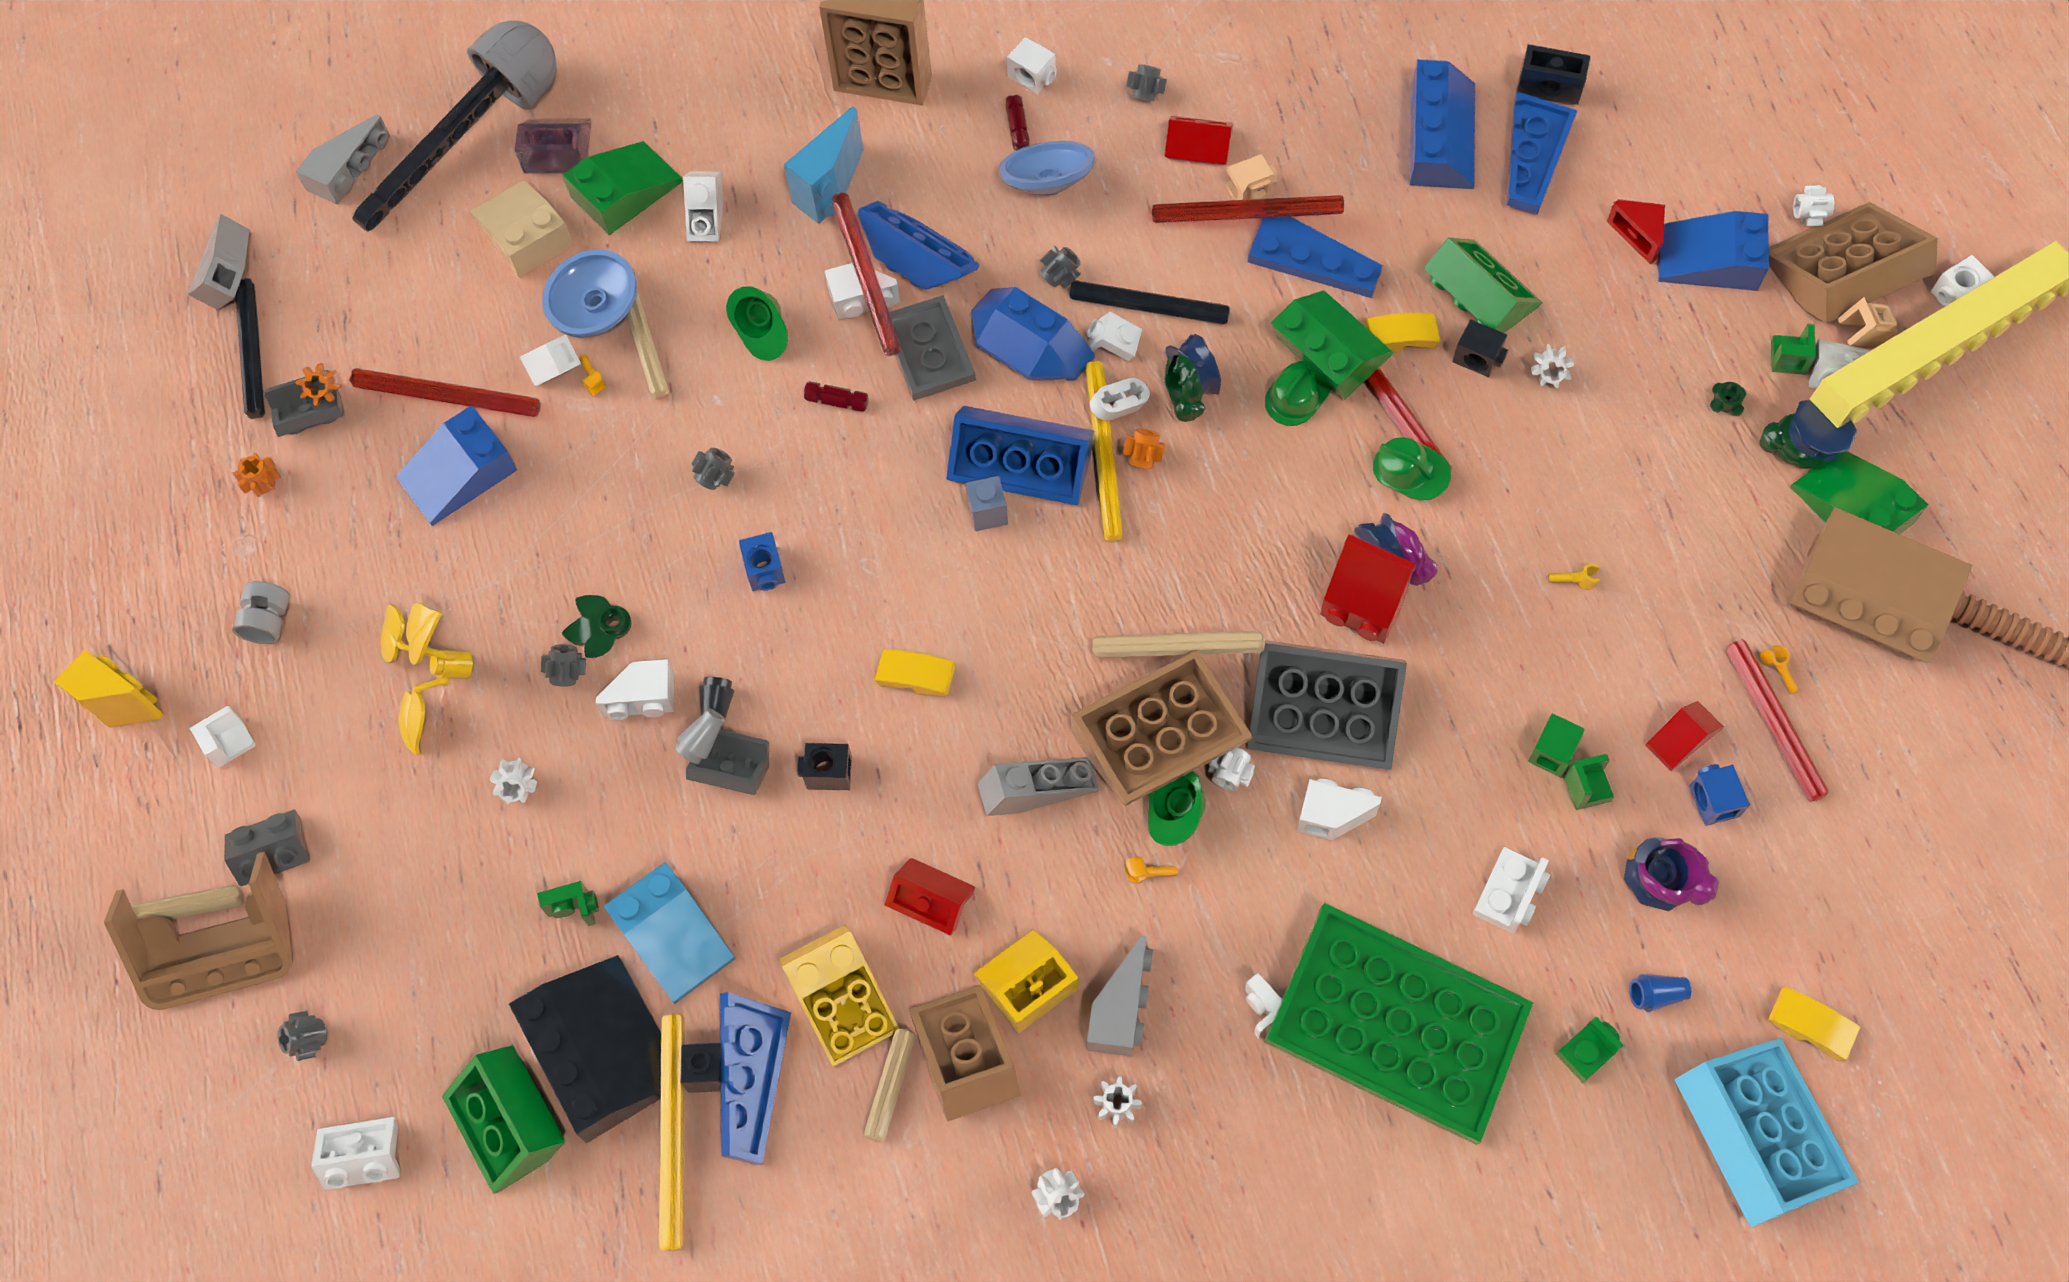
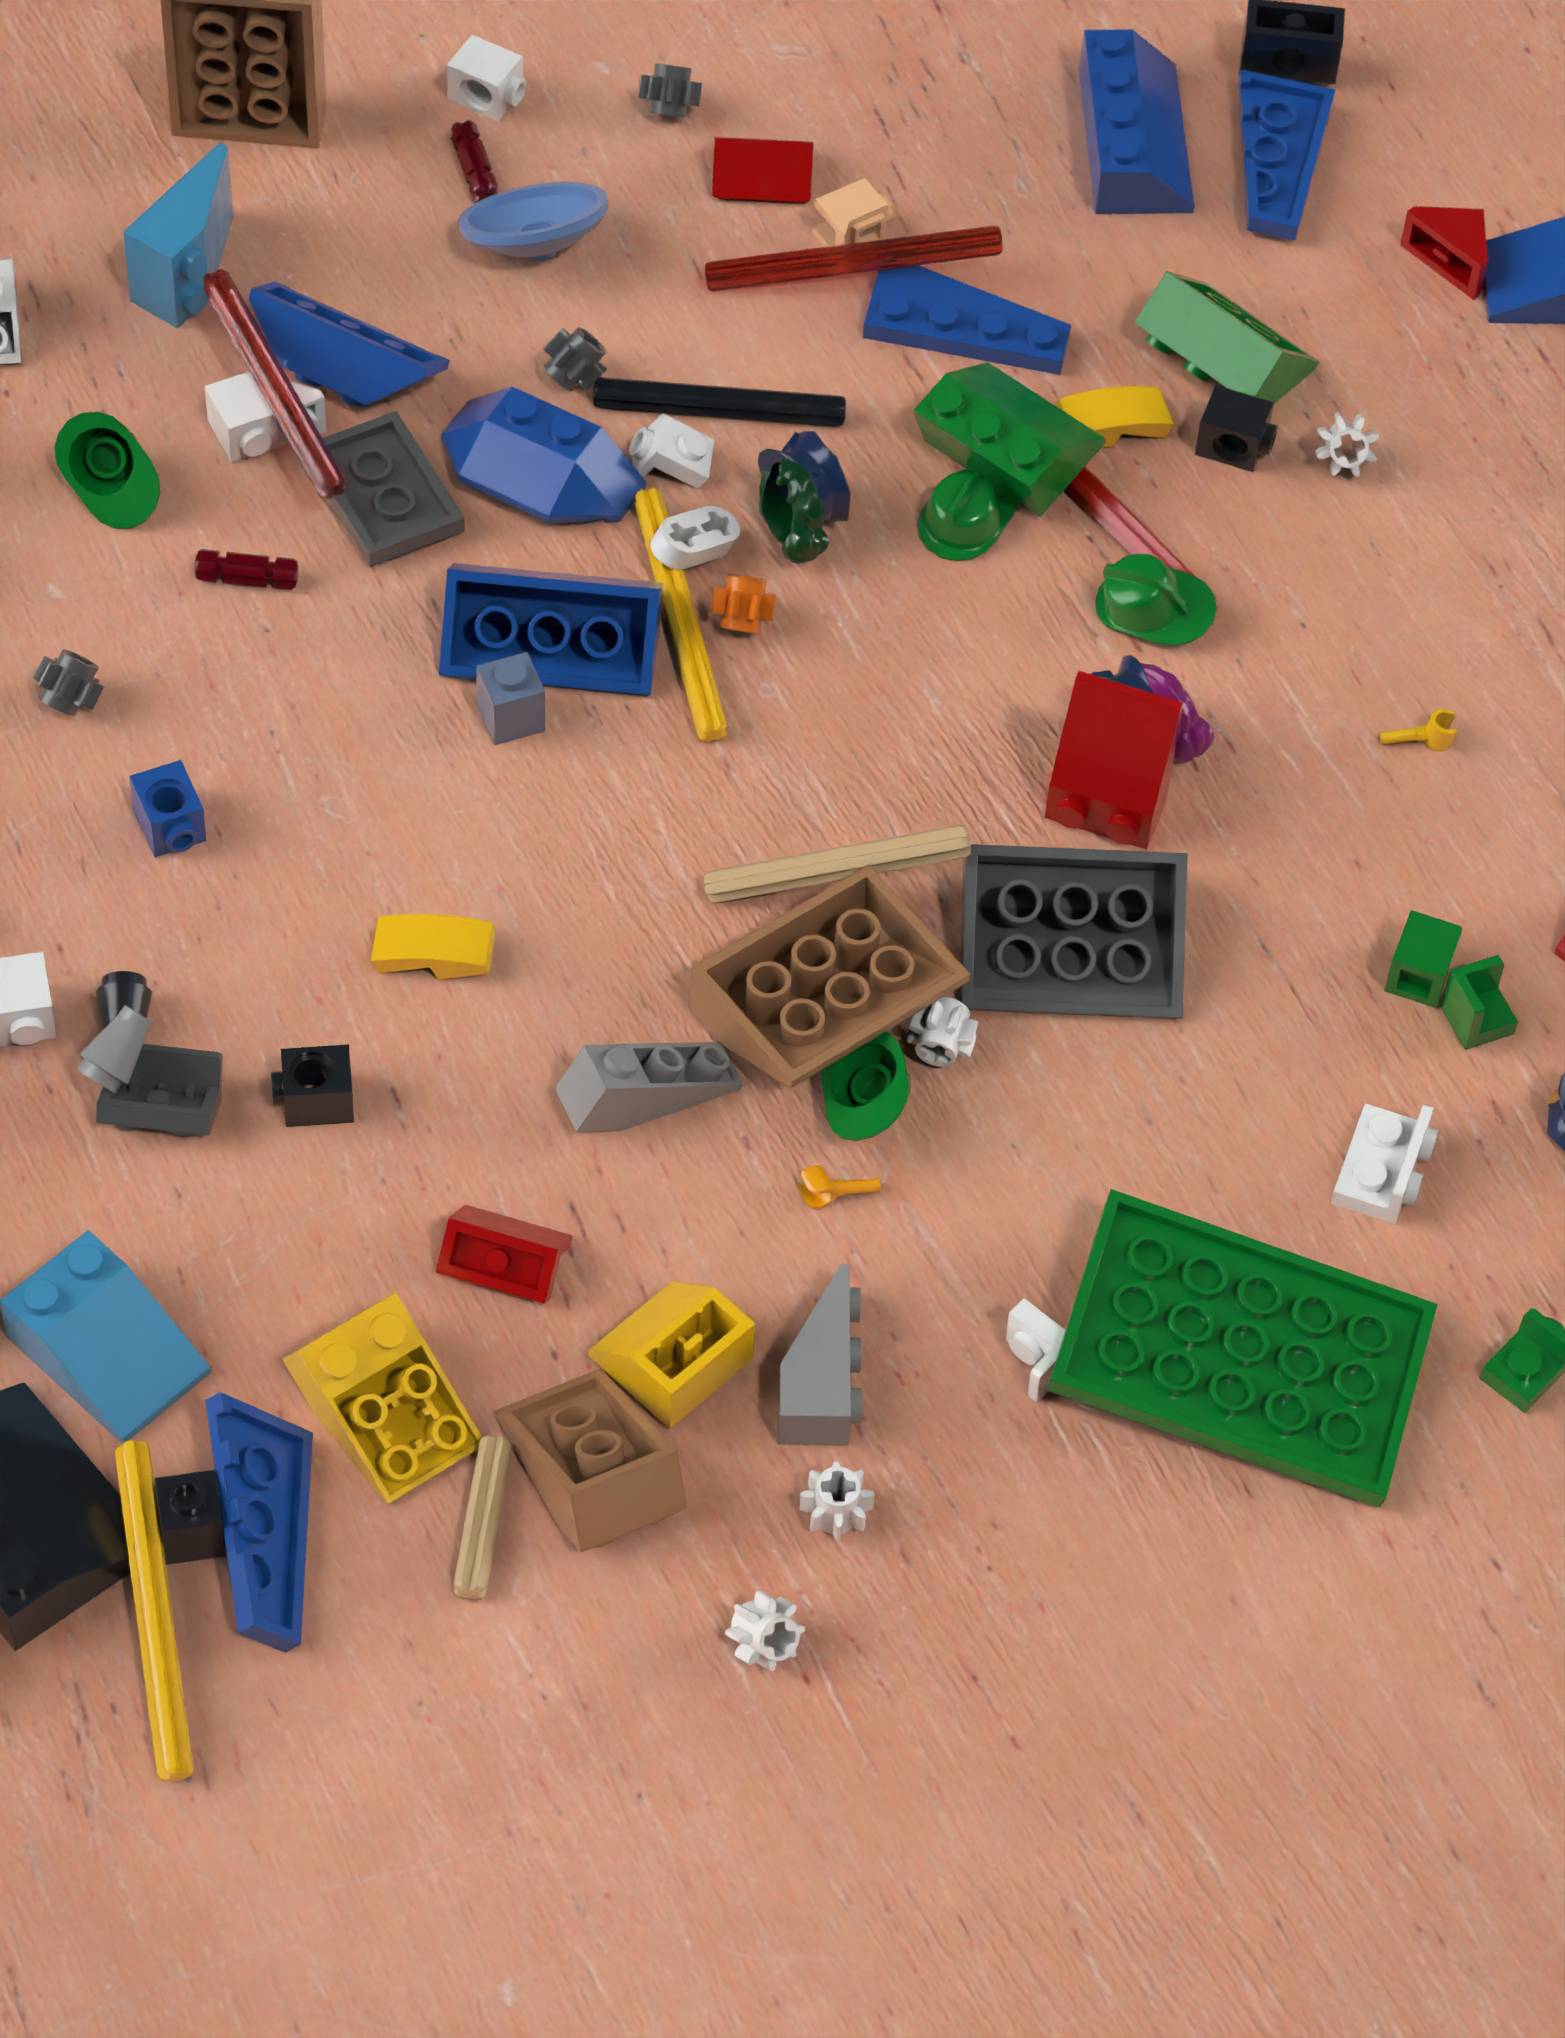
camera: 15 degrees left, 10 degrees down
(1335, 810) = (1108, 1075): white slope -> none

